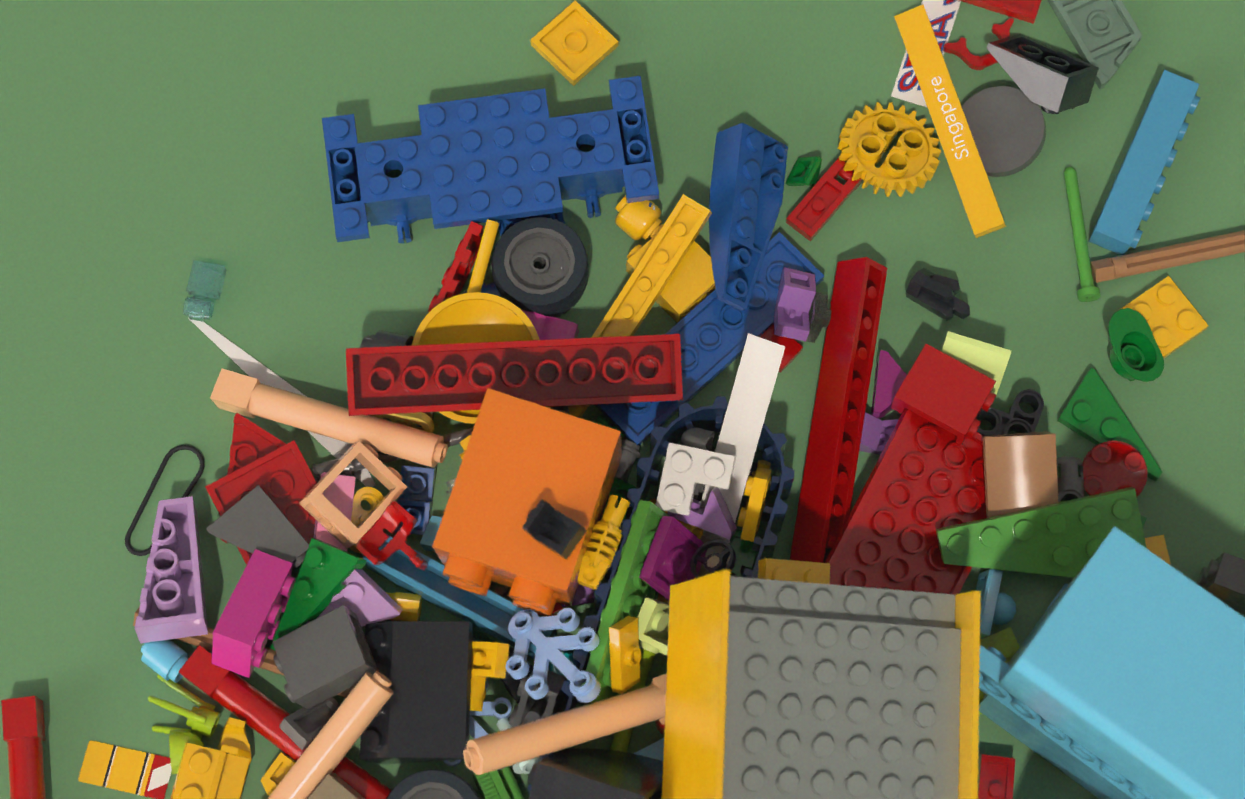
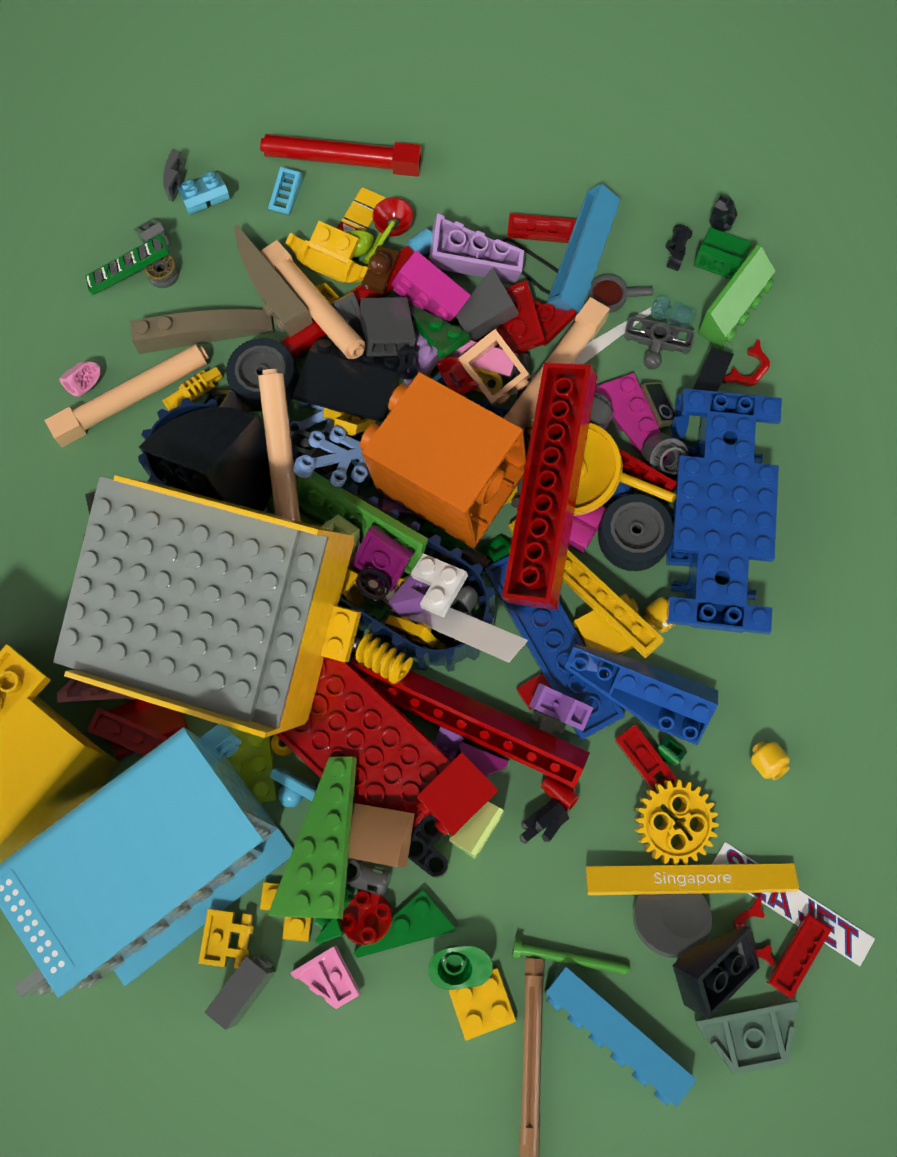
camera: 110 degrees right, 0 degrees up
(33, 254) = (723, 214): none -> black rock
(96, 243) = (722, 253): none -> green bracket
(96, 305) = (677, 247): none -> black connector
(103, 496) = (540, 228): none -> red plate
(116, 702) = (393, 209): none -> red piece
(132, 425) = (584, 249): none -> dark azure brick
(168, 209) = (738, 298): none -> bright green slope
(187, 380) = (613, 292): none -> piece
(230, 697) = (380, 269): none -> reddish brown tile
(247, 317) = (647, 337): none -> dark grey piece
(257, 162) = (753, 379): none -> red helmet
(291, 223) = (713, 369): none -> black beam
(345, 281) = (659, 403): none -> slope
(369, 308) = (630, 410): none -> dark pink wing
(376, 248) = (679, 423): none -> blue slope
(378, 610) = (409, 363): none -> black bush
(425, 252) = (656, 449): none -> dark grey piece
(553, 529) = (403, 447): black bracket -> none
(574, 43) = (817, 605): yellow plate -> none
(602, 544) = (403, 506): yellow hinge -> none
(624, 654) = (324, 505): yellow plate -> none
(783, 61) = (770, 760): none -> yellow head
(803, 526) = (381, 659): none -> yellow piece
(896, 284) = (560, 792): none -> red cone
(1150, 510) = (331, 931): none -> green slope
(1195, 498) = (329, 977): none -> bright pink wing

